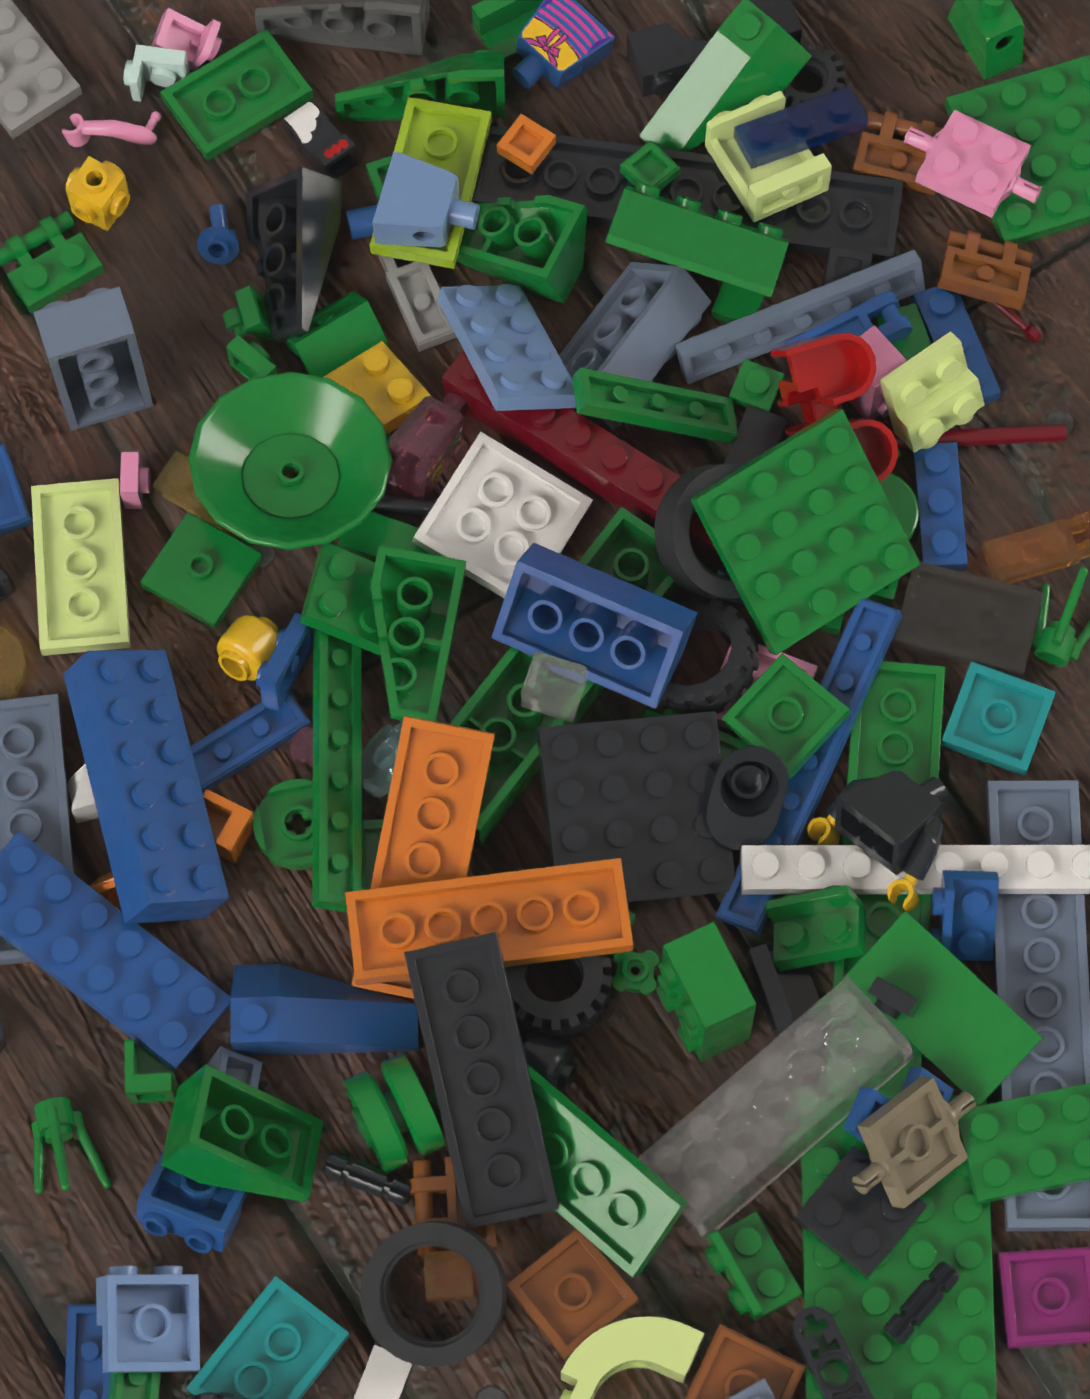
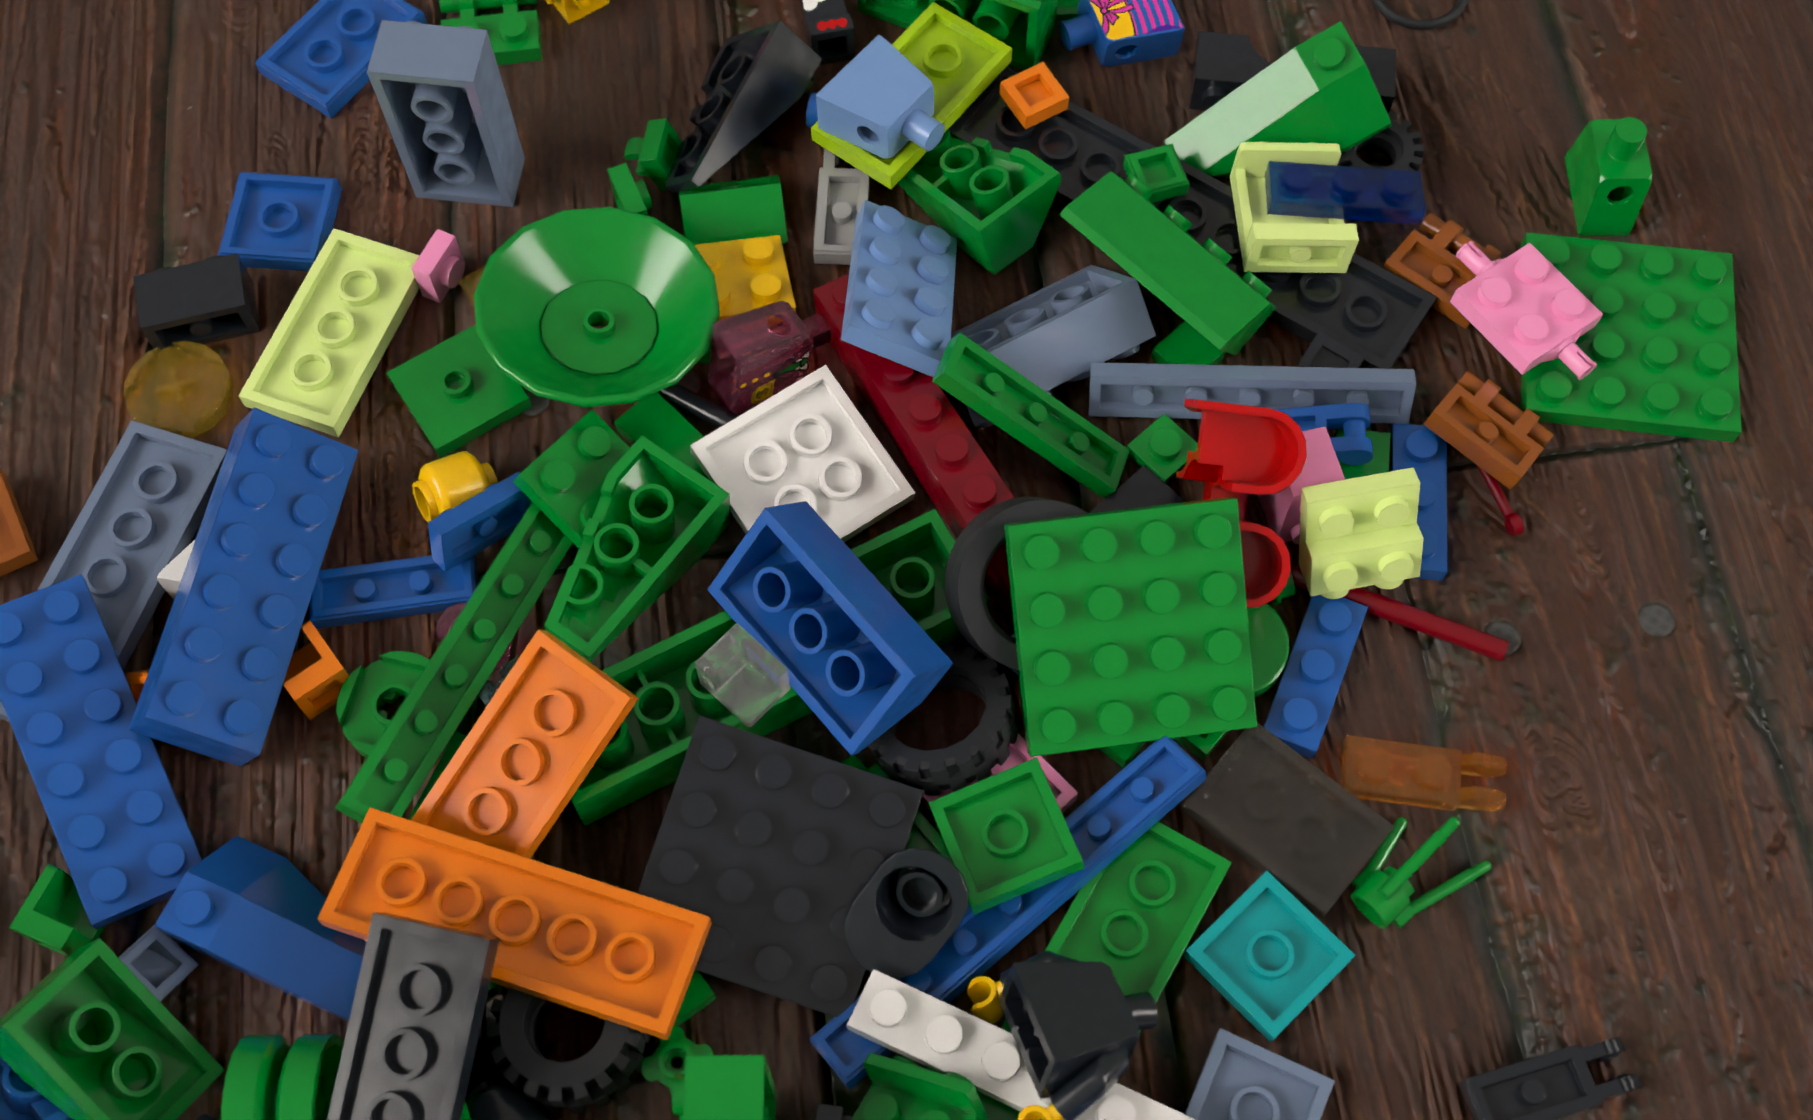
camera: 25 degrees right, 5 degrees down
(217, 242) = (669, 72): blue plate -> none

